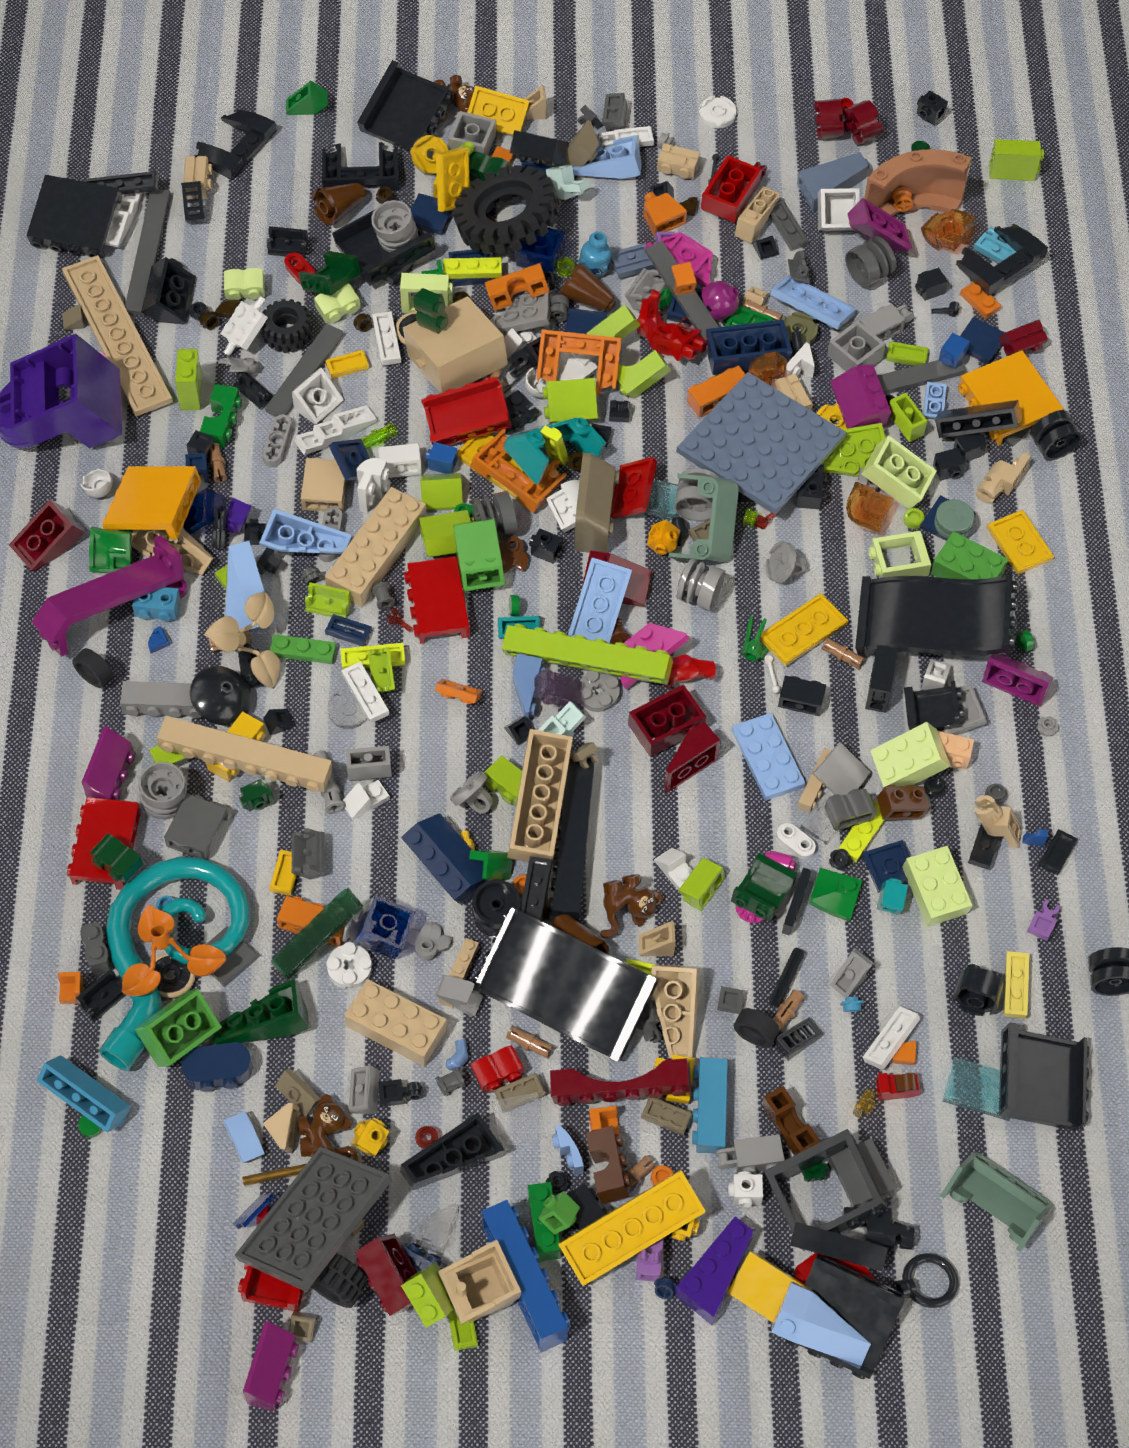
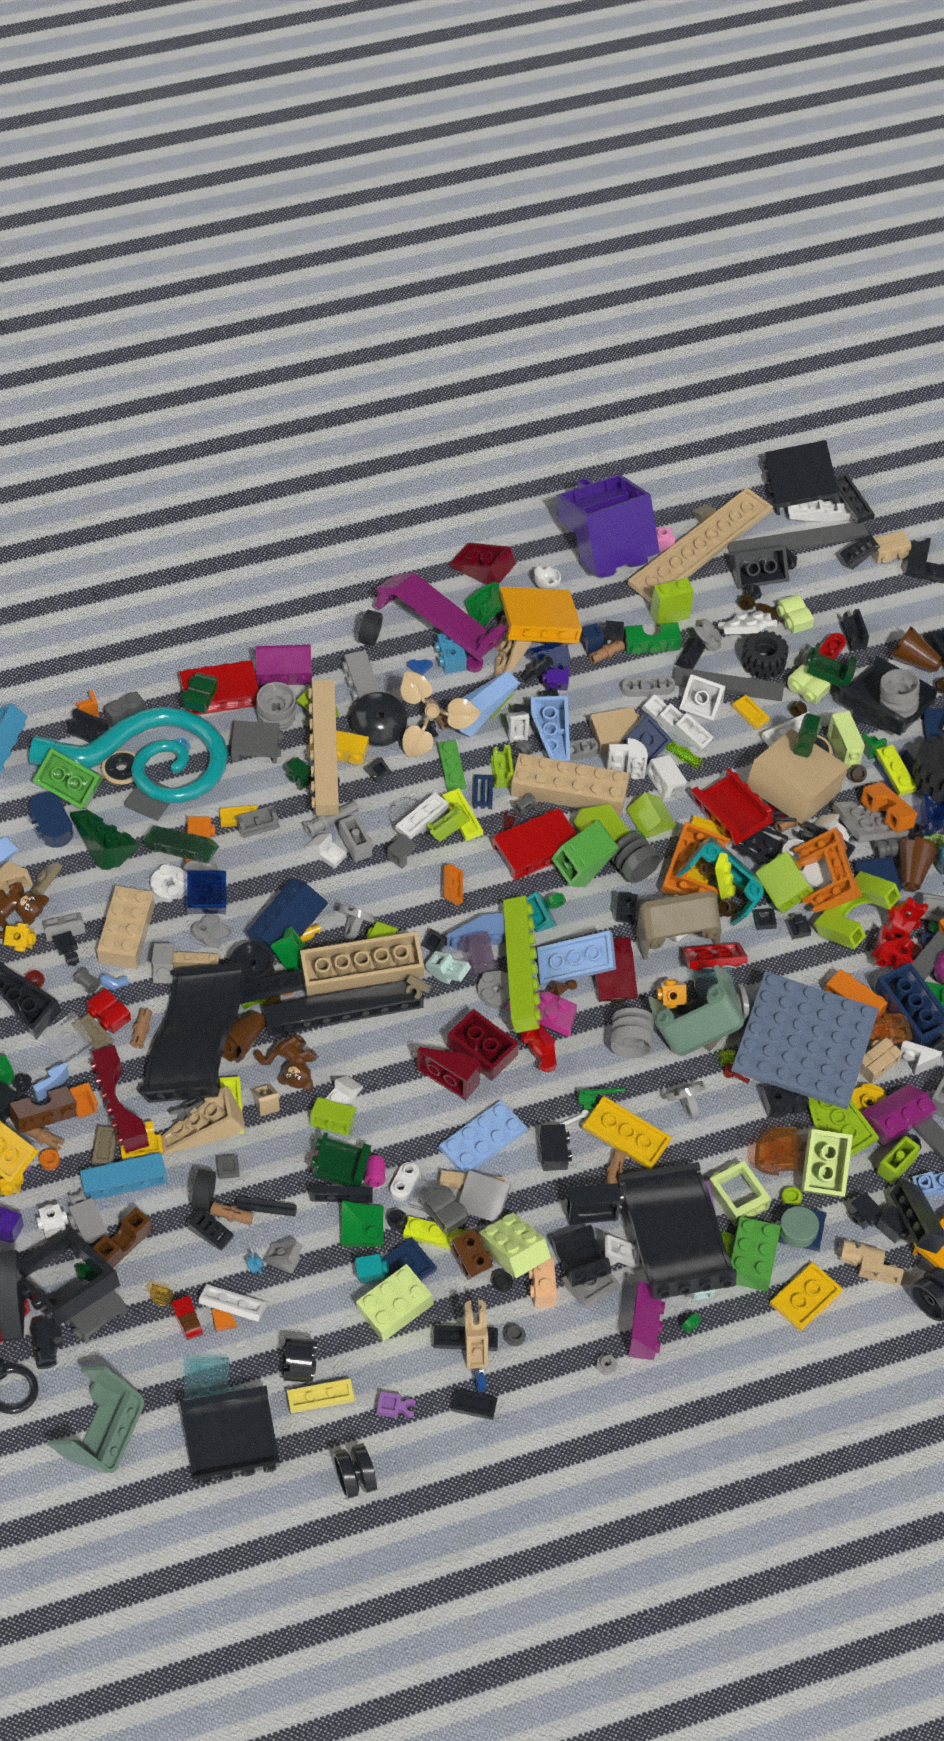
camera: 70 degrees right, 5 degrees down
(156, 927) = (152, 738): orange plant -> none
(283, 565) = (518, 726): none -> white slope
(398, 726) = (399, 850): none -> dark grey panel
(442, 458) = (682, 806): blue brick -> none
(513, 557) = (605, 885): reddish brown plate -> none

